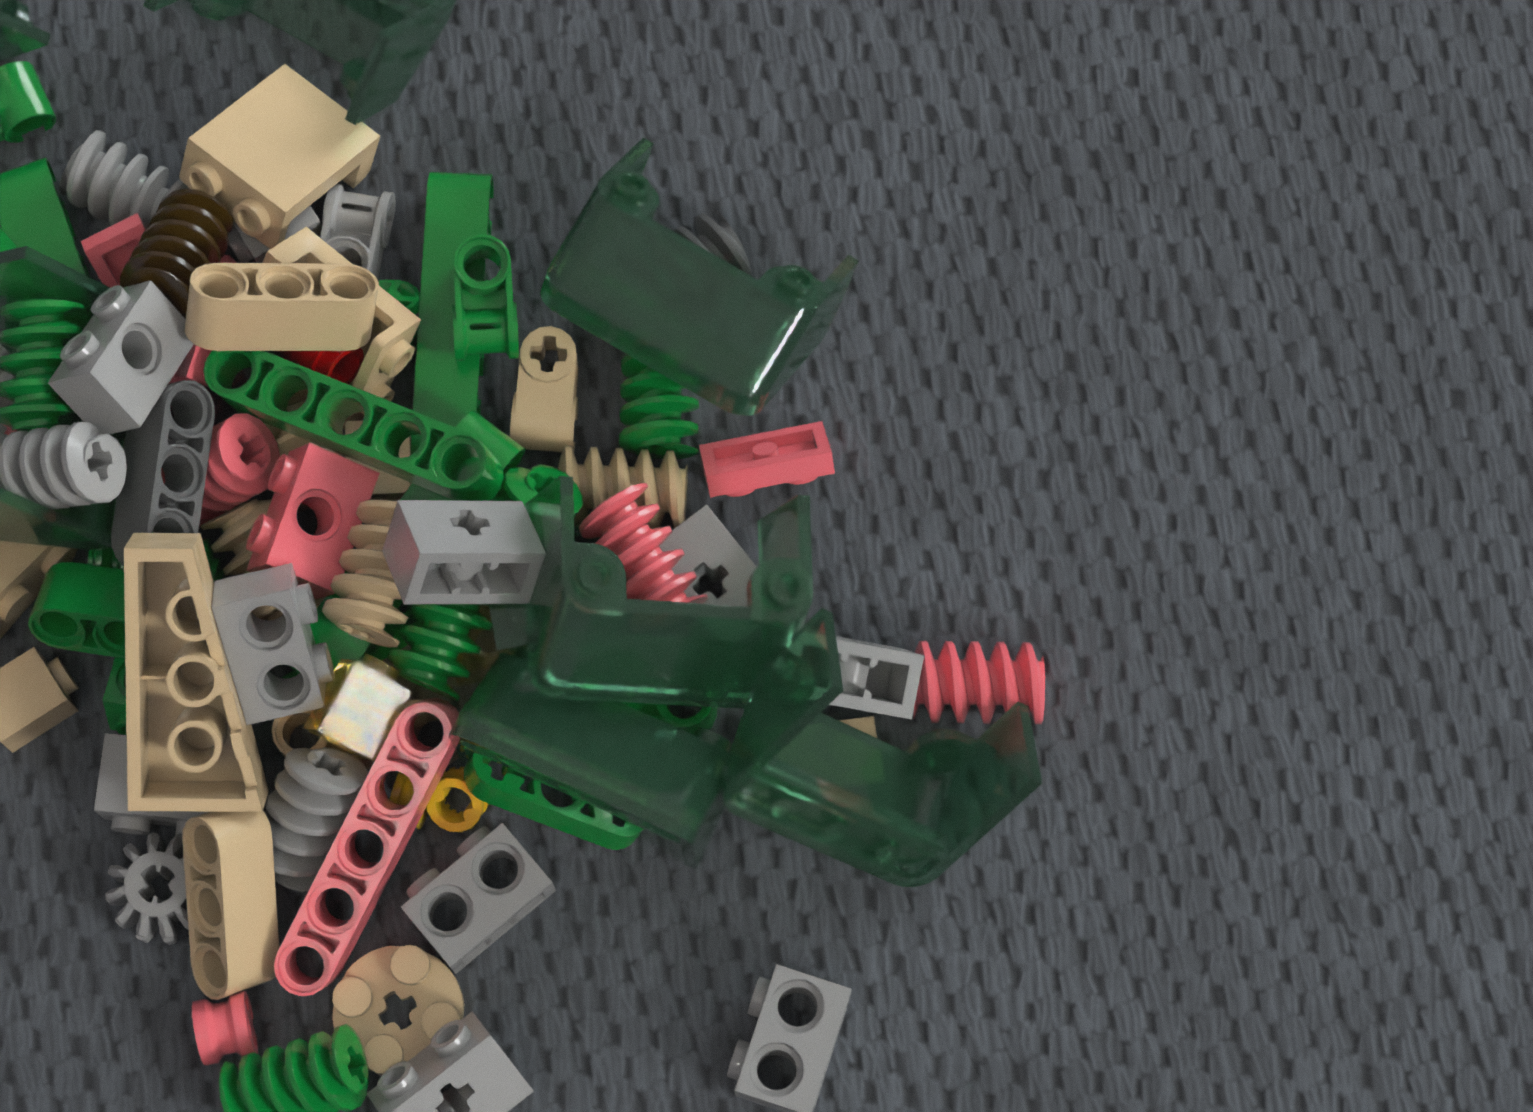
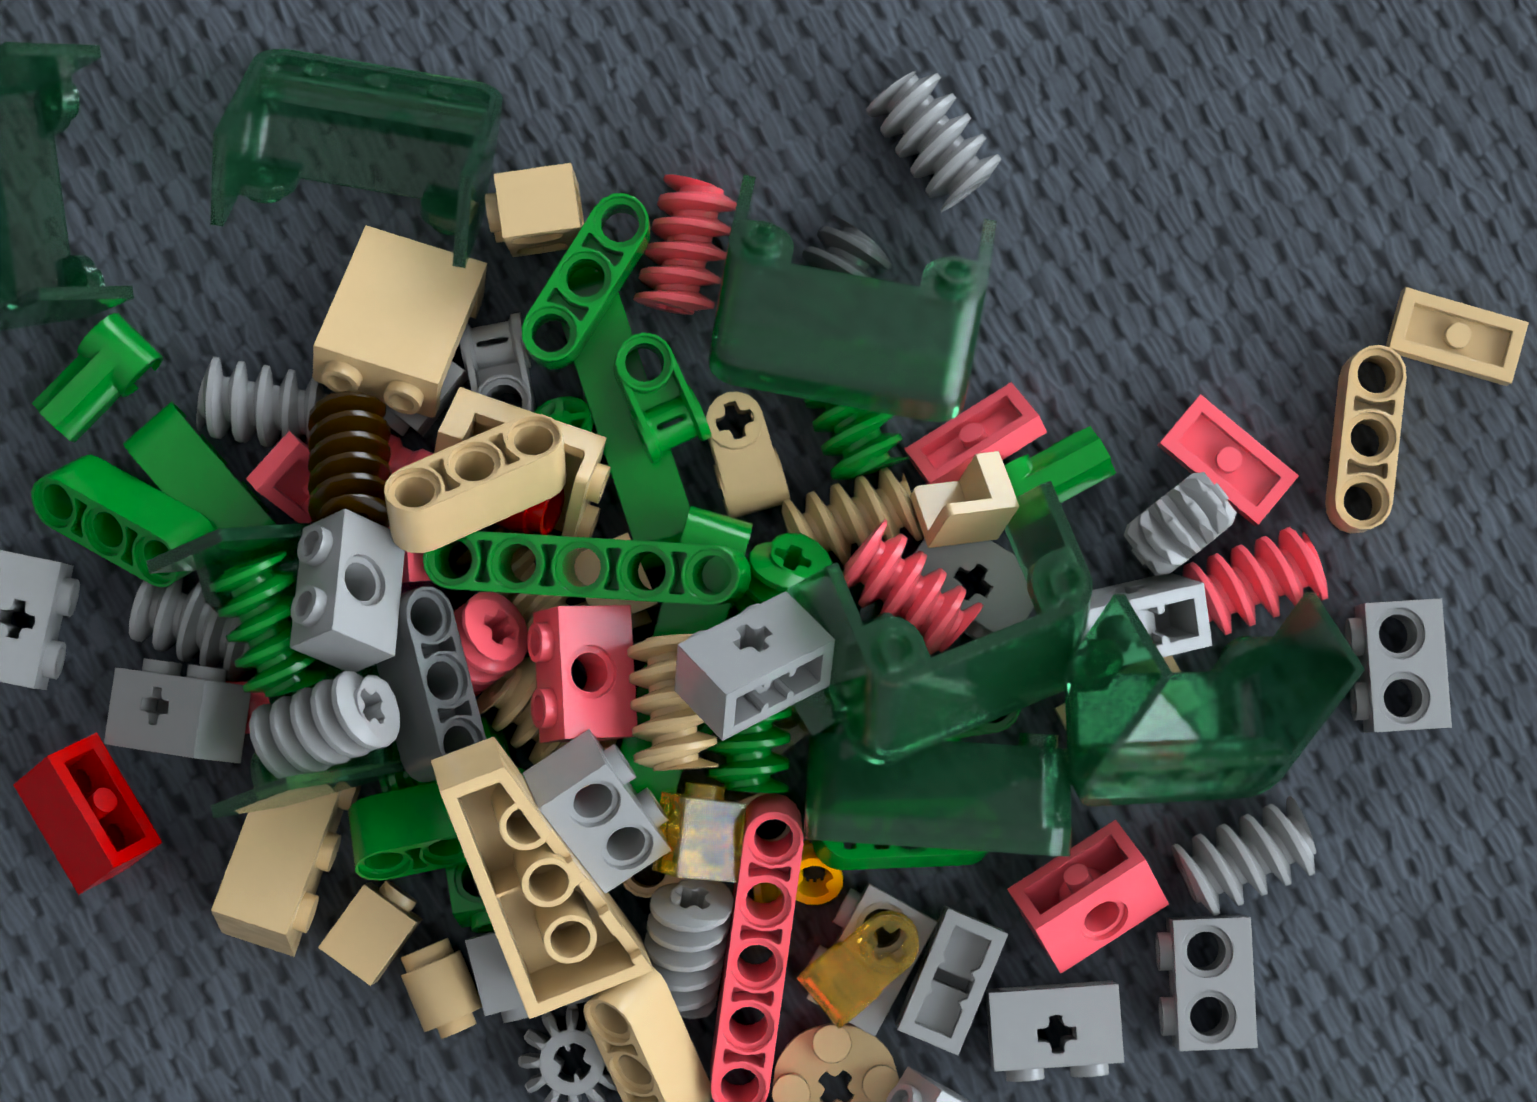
camera: 20 degrees left, 10 degrees up
(66, 775) = (441, 988): none -> tan brick
(445, 104) = (535, 209): none -> tan brick
(450, 890) = (851, 971): none -> clear yellow piece
(470, 150) = (593, 250): none -> green beam
(544, 942) = (951, 980): none -> light grey brick
(563, 187) = (685, 246): none -> coral piece
(602, 1001) = (1086, 1007): none -> light grey brick
(705, 914) = (1089, 896): none -> coral brick
(728, 511) = (967, 509): none -> tan panel
(831, 174) = (933, 137): none -> light grey piece
(836, 515) = (1069, 464): none -> green piece
(872, 936) = (1246, 857): none -> light grey piece
(926, 600) = (1180, 524): none -> light grey gear
(996, 564) = (1229, 456): none -> coral plate
(1100, 817) = (1418, 665): none -> light grey brick
(1142, 563) = (1384, 415): none -> tan beam
(1255, 529) = (1456, 336): none -> tan plate

